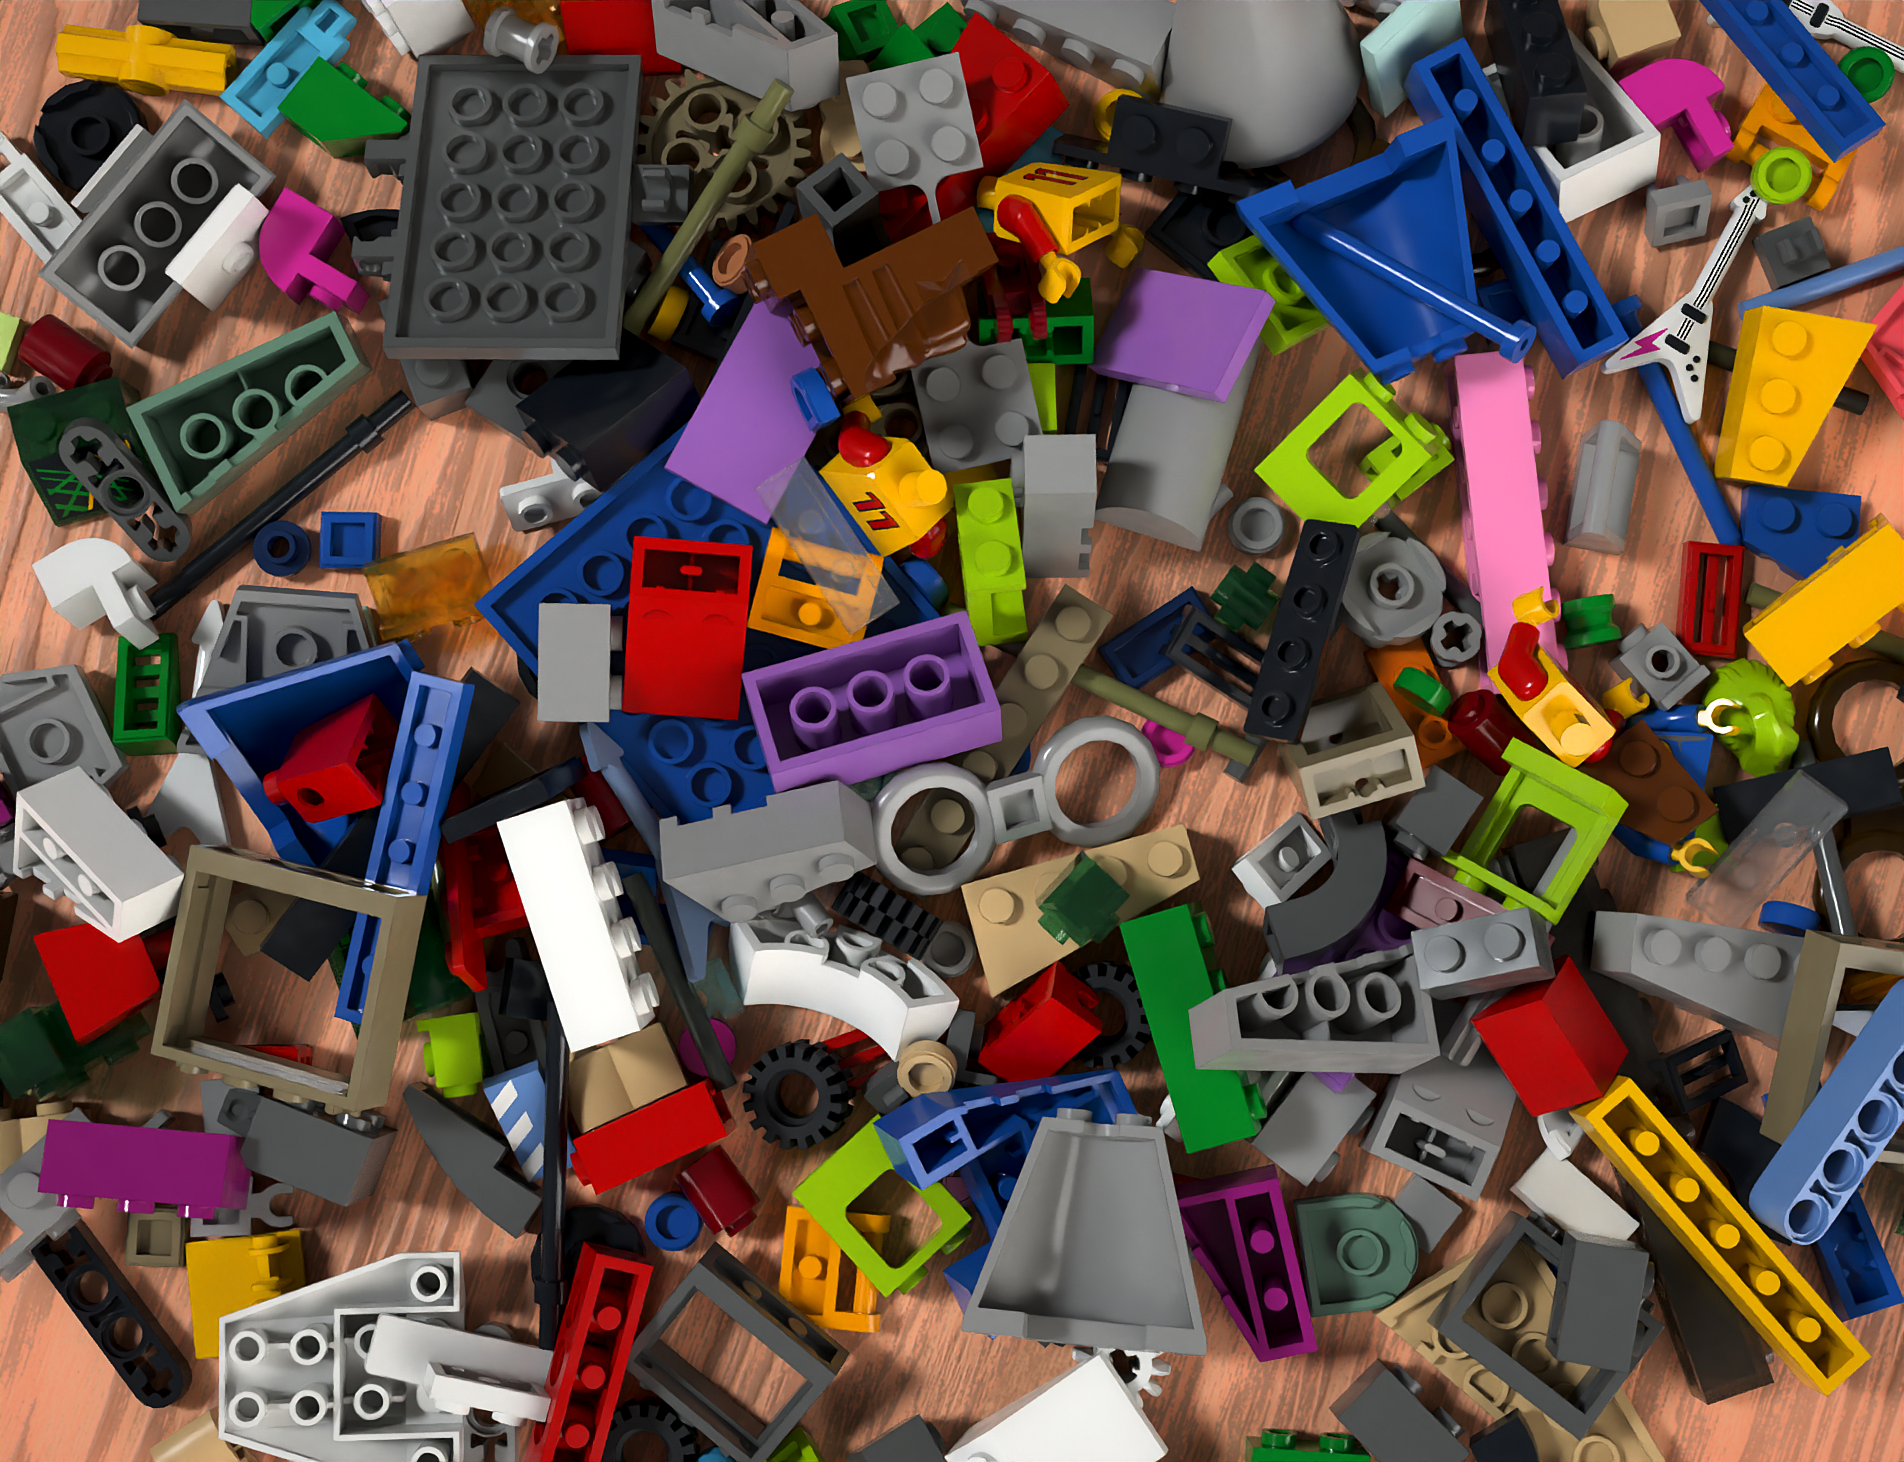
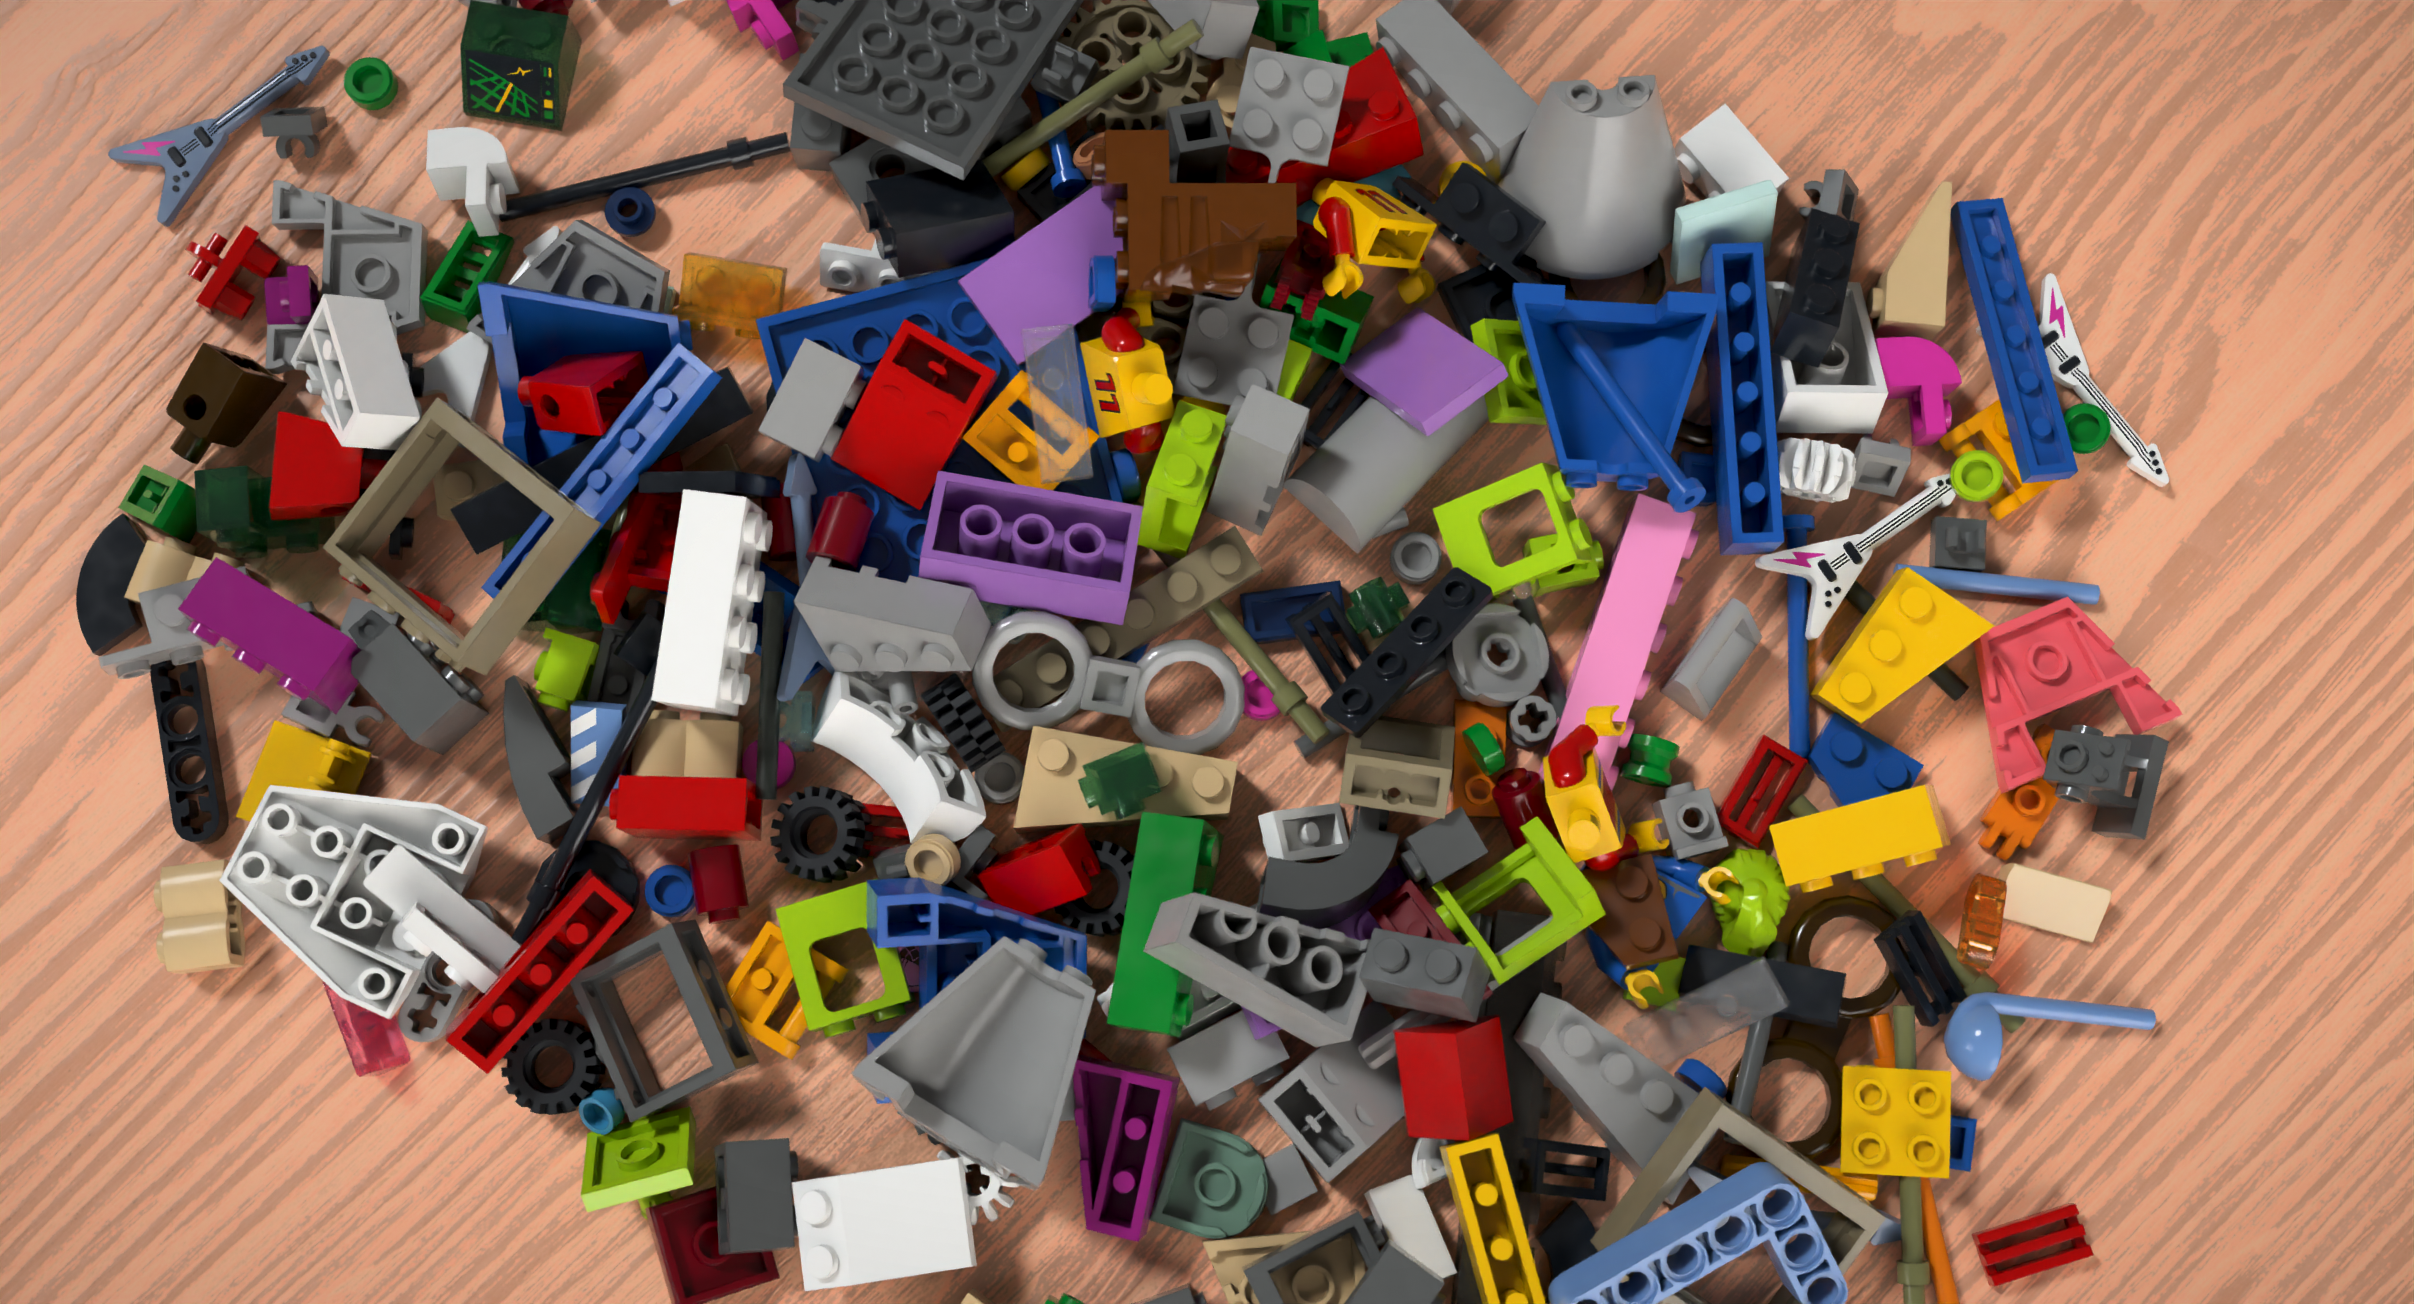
camera: 20 degrees right, 5 degrees down
(87, 466) = (506, 74): dark grey beam -> none
(157, 1238) = (255, 704): dark tan tile -> none
(241, 410) = (654, 88): sand green wedge -> none
(349, 540) = (686, 229): blue tile -> none
(670, 781) = (841, 530): none -> dark red brick
(1621, 245) = (1815, 470): none -> white gear

